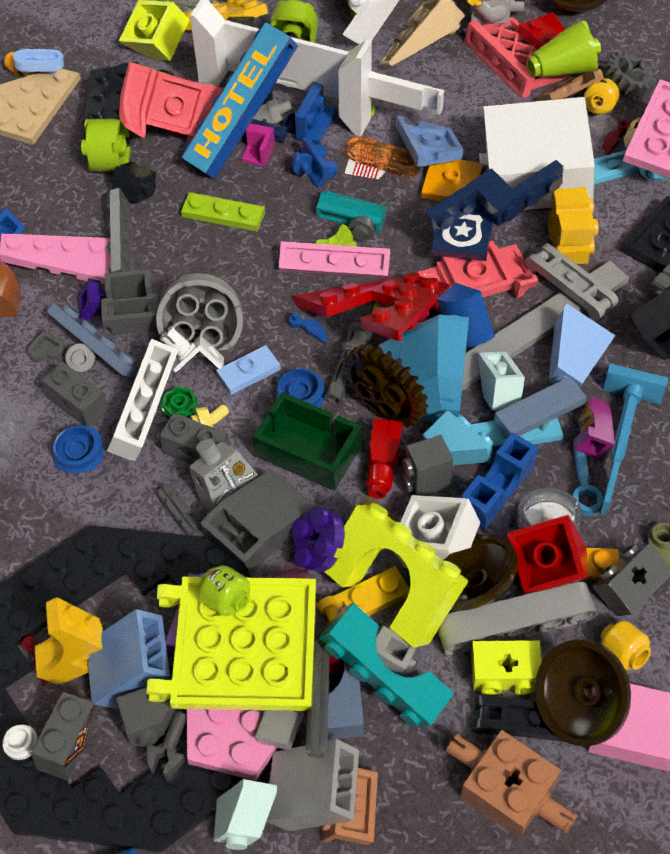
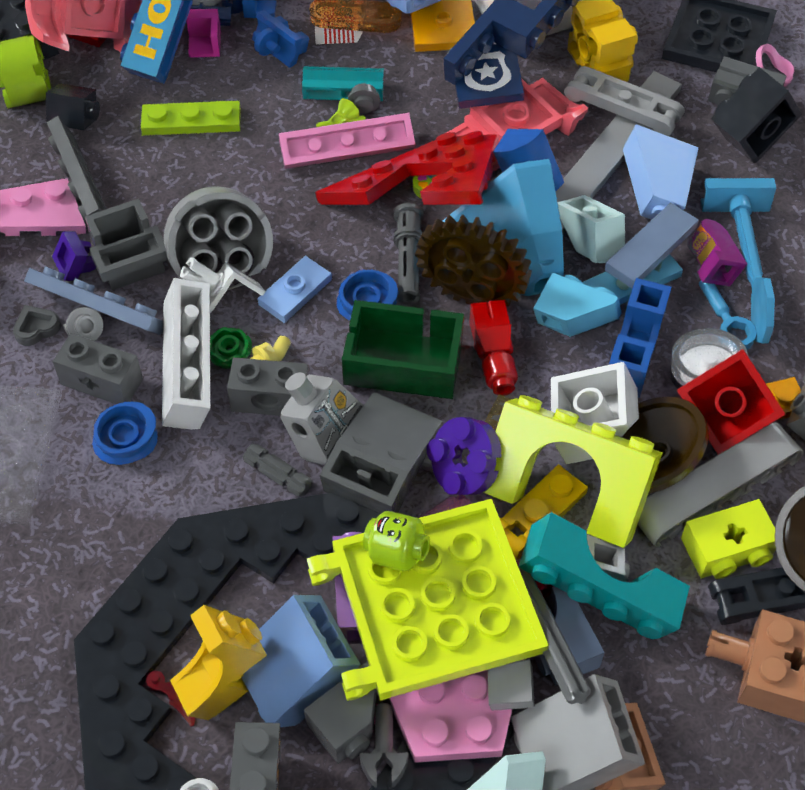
camera: 20 degrees left, 0 degrees up
(310, 325) = (349, 222): blue piece -> none
(427, 467) = (556, 342): dark grey brick -> none

